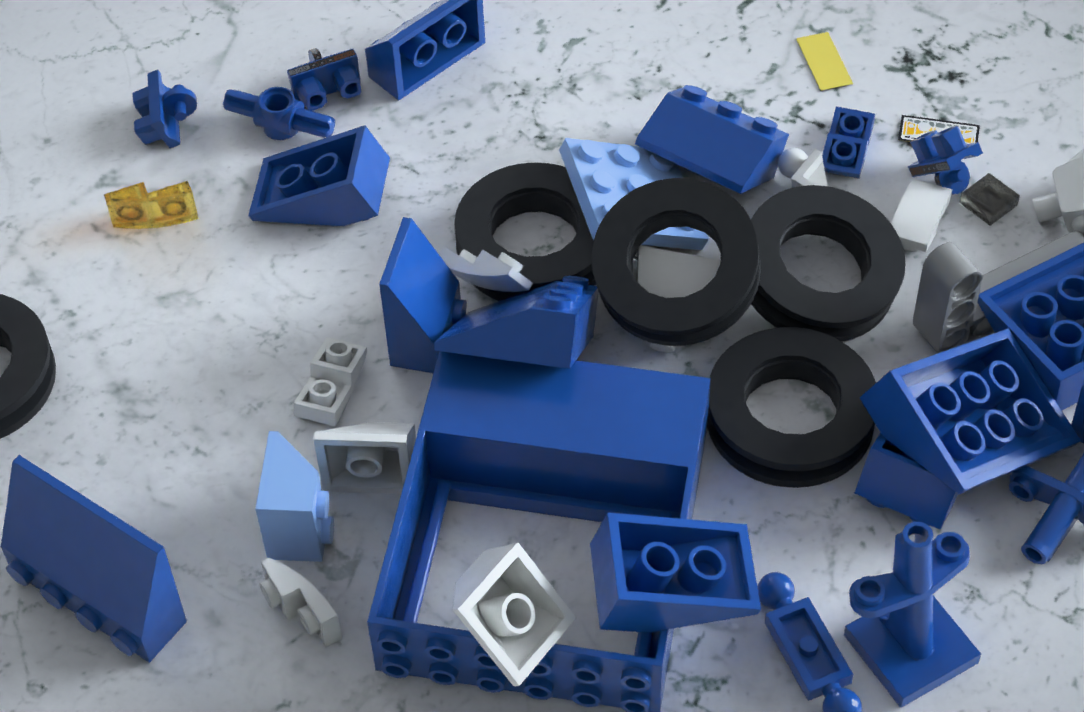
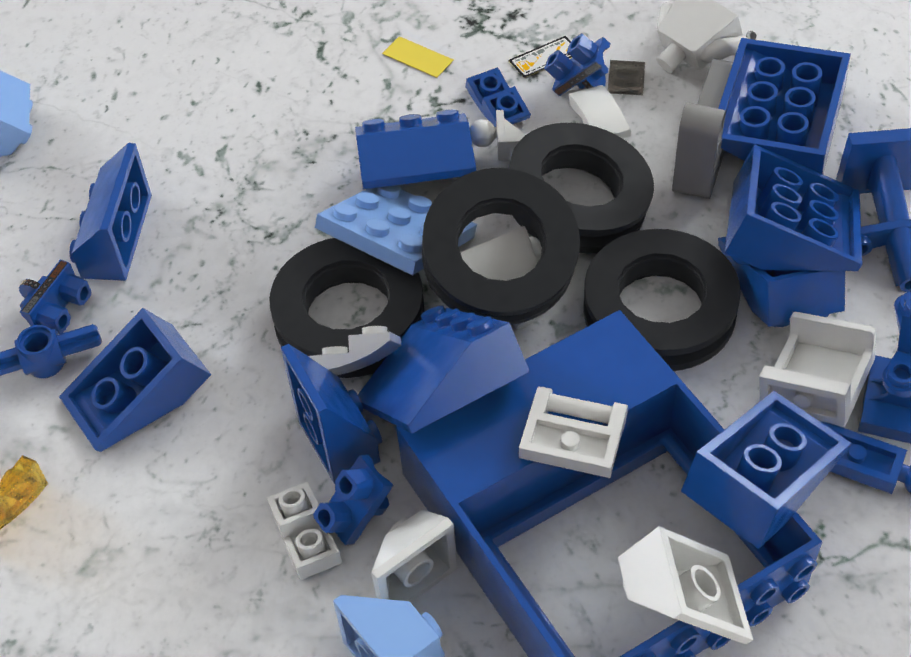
camera: 40 degrees left, 0 degrees up
(377, 383) = (358, 497): none -> blue hips
(548, 446) = (569, 441): none -> white plate
(838, 554) = (822, 366): none -> white panel

